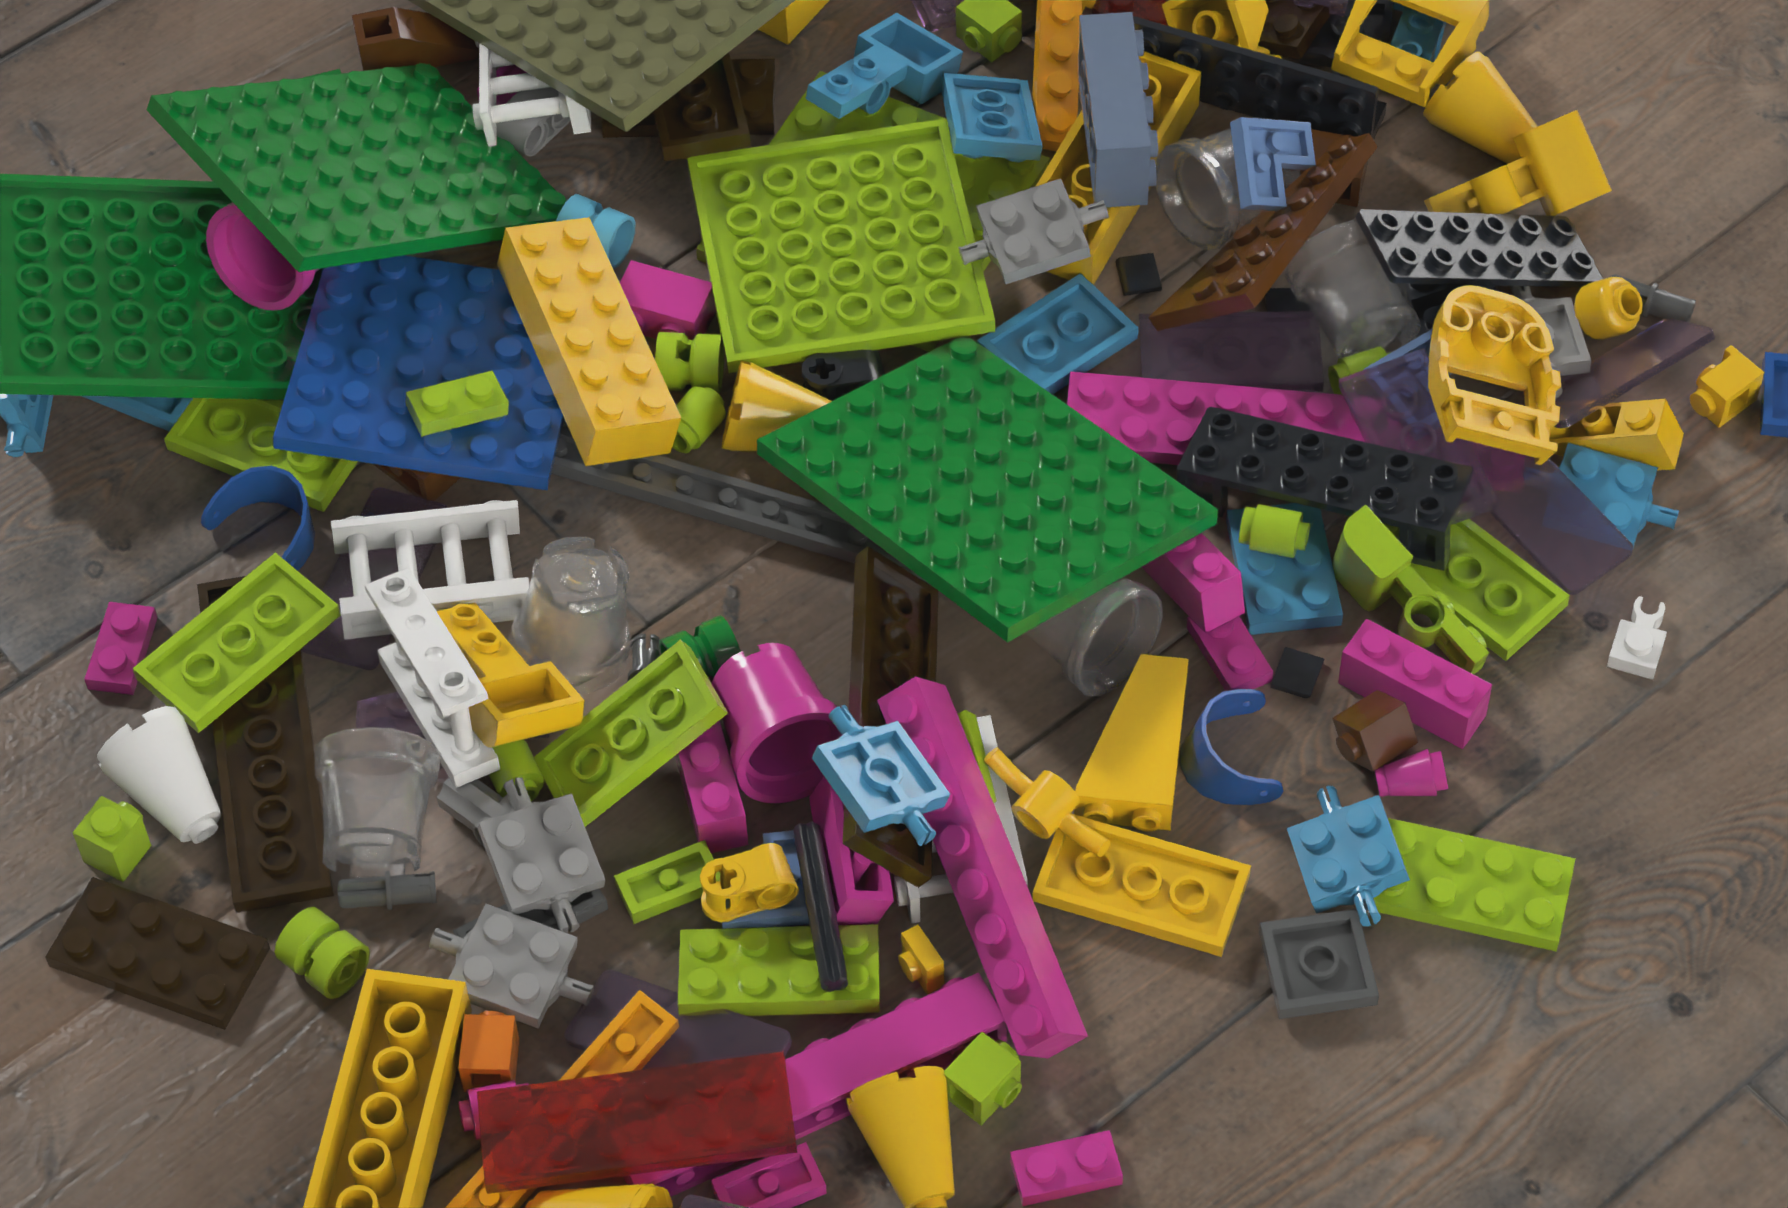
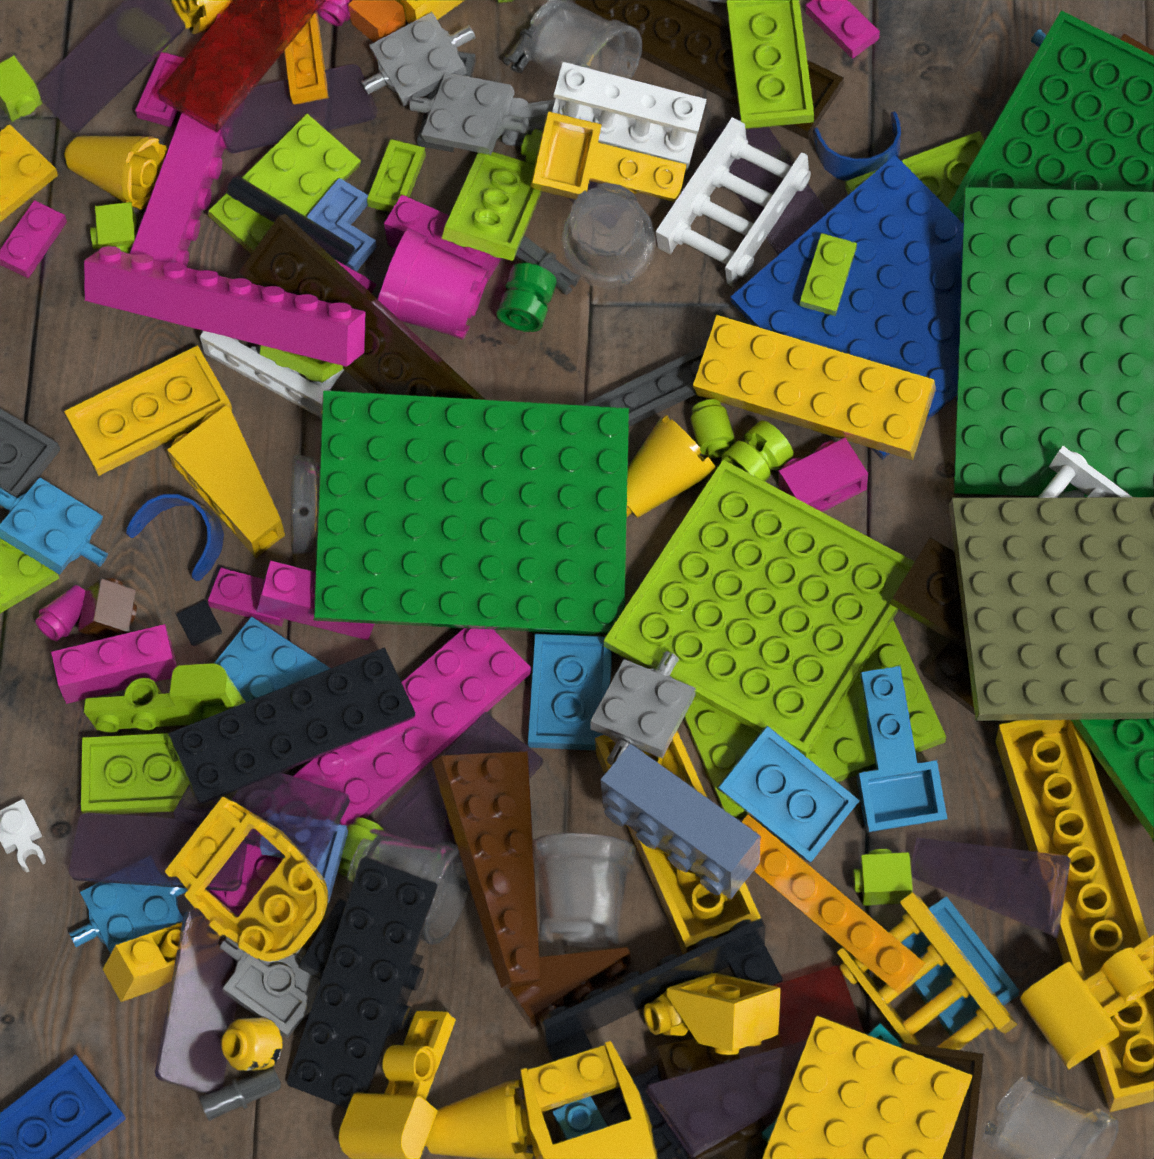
camera: 135 degrees right, 10 degrees up
(612, 226) = (911, 488): medium azure wheel -> none
(751, 881) = (341, 193): yellow piece -> none
(841, 371) = (654, 534): black piece -> none
(881, 776) = (300, 255): dark azure plate -> none
(921, 960) = (216, 258): yellow plate -> none
(1045, 804) = (235, 383): yellow piece -> none
(1138, 274) = (581, 799): black piece -> none
(1262, 152) = (552, 884): medium blue plate -> none
(1274, 530) = (287, 666): lime brick -> none
(1727, 387) = (124, 1063): yellow brick -> none

